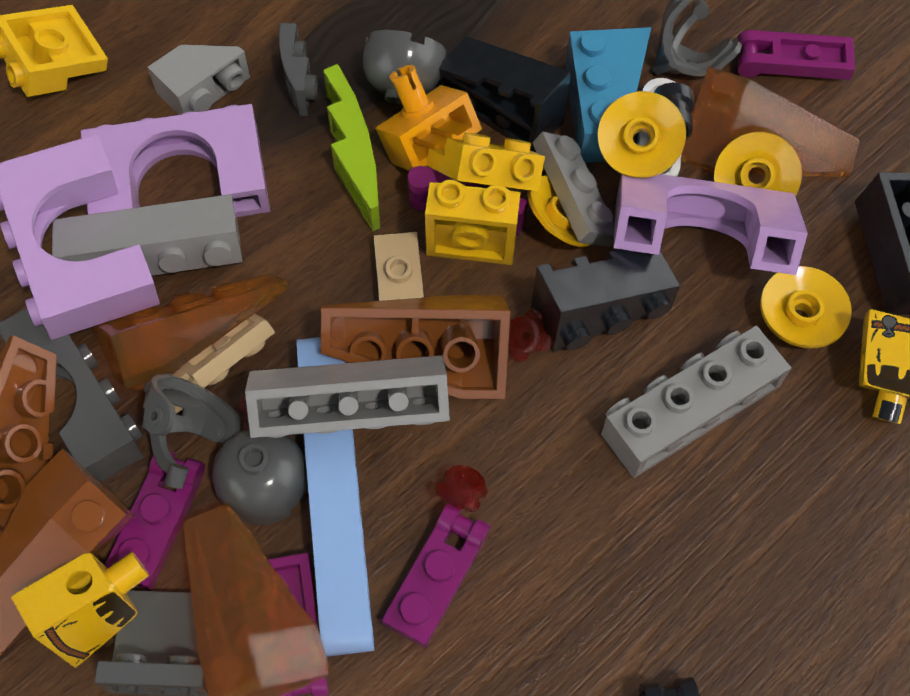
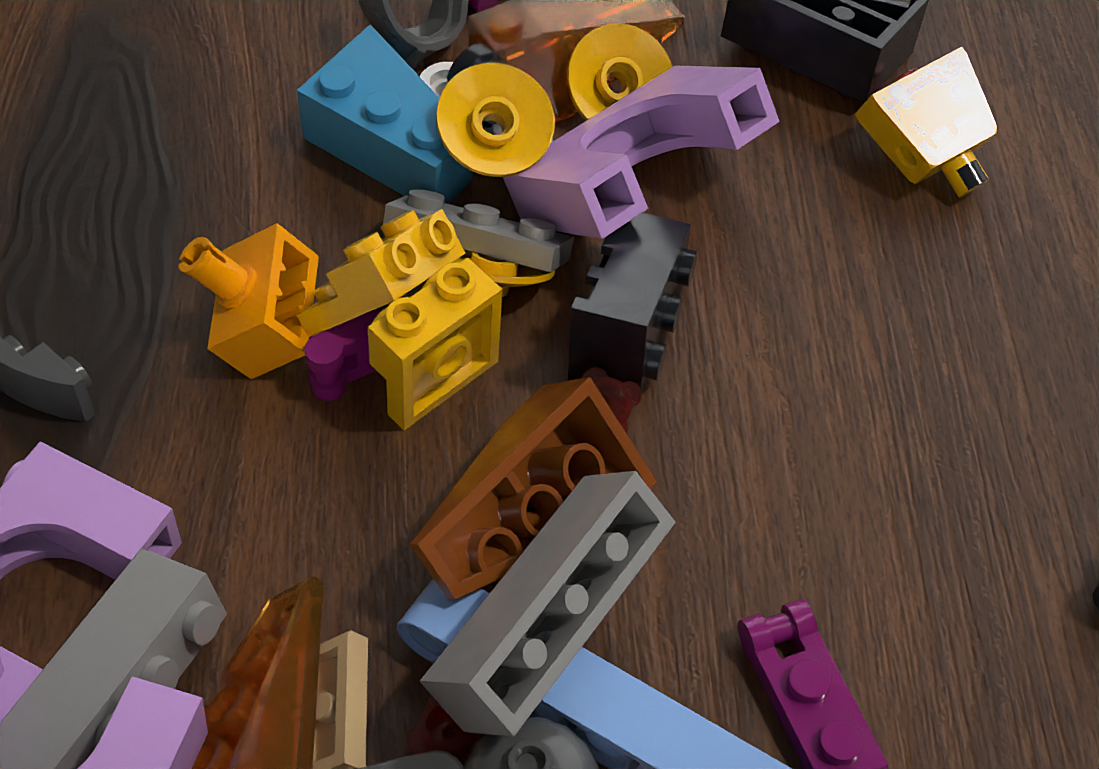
camera: 50 degrees left, 10 degrees down
(353, 149) = (220, 398): lime slope -> none
(393, 49) = (141, 267): dark grey cylinder -> none
(398, 266) = (400, 466): tan plate -> none
(462, 488) = (733, 592): clear red plate -> none
(508, 89) = (314, 187): black wedge -> none
(693, 400) = (820, 319): light grey brick -> none
(816, 295) = (804, 155): yellow dish -> none

